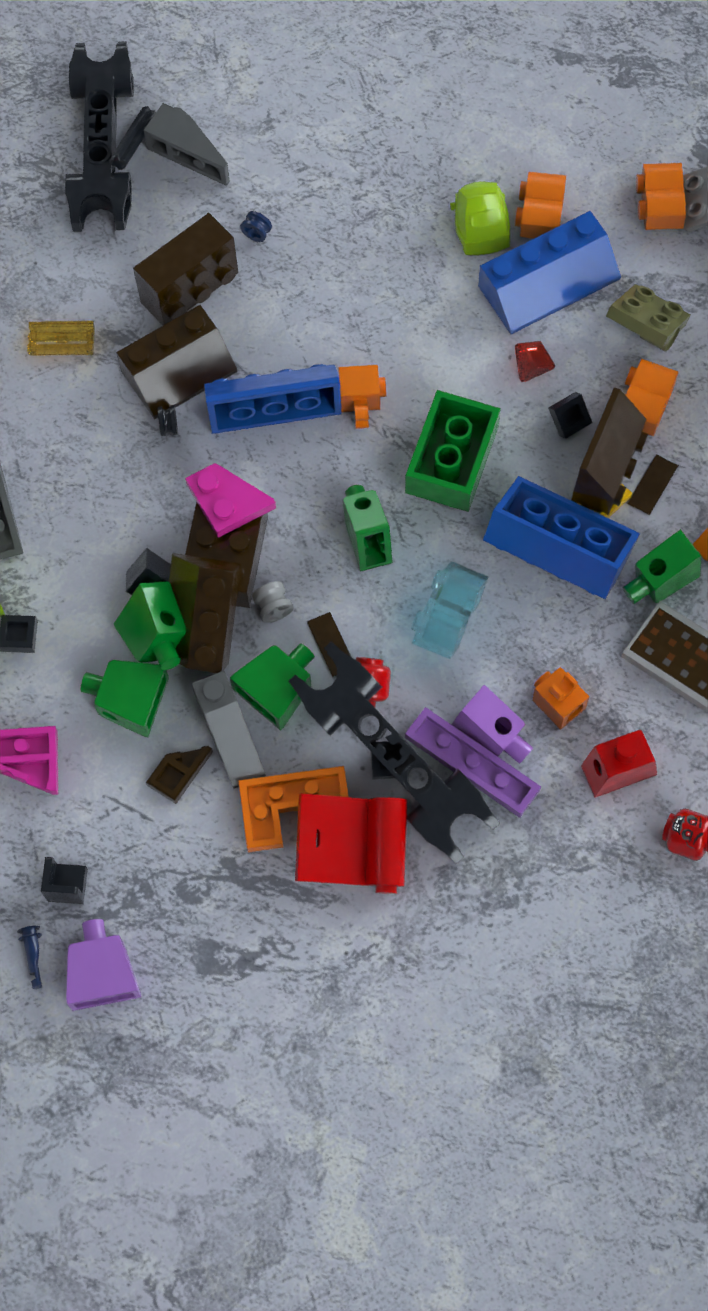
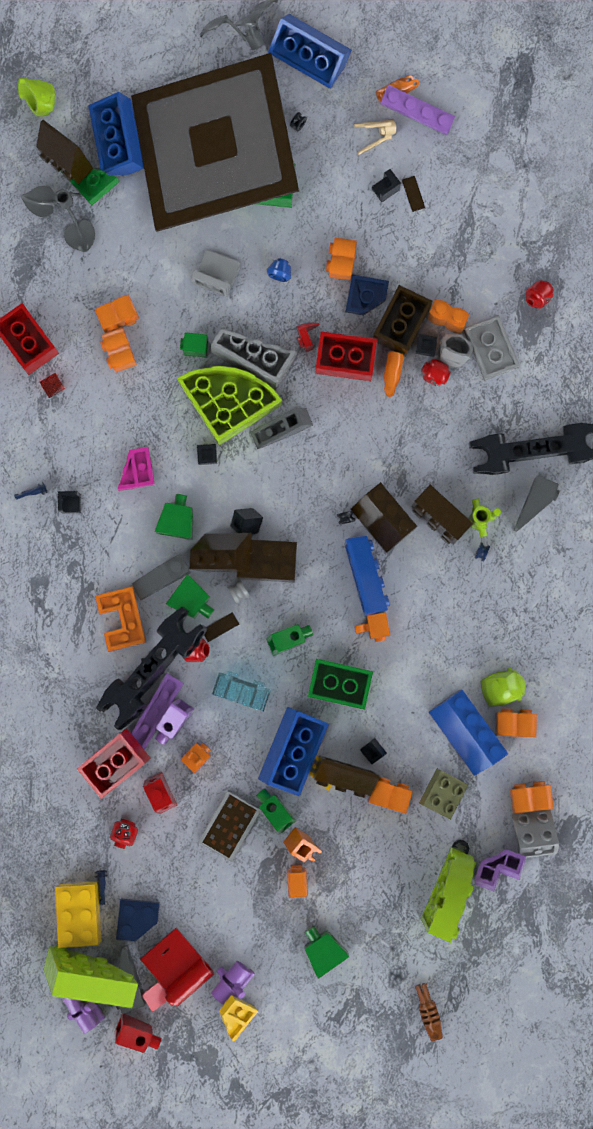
camera: 85 degrees right, 15 degrees up
(61, 333) = (402, 441): clear yellow tile -> none
(99, 969) = (24, 528): medium lavender torso -> none
(132, 139) = (534, 469): black axle -> none
(152, 624) = (211, 528): green torso -> none
(177, 772) = (137, 552): dark brown tile -> none
(197, 203) = (486, 515): none -> lime pin
(227, 498) = (288, 558): dark pink wing -> none
(356, 841) = (101, 653): red door -> none
(532, 360) = (410, 726): clear red slope -> none
(562, 833) = (113, 763): none -> brick
(653, 484) = (337, 802): dark brown sticker -> none

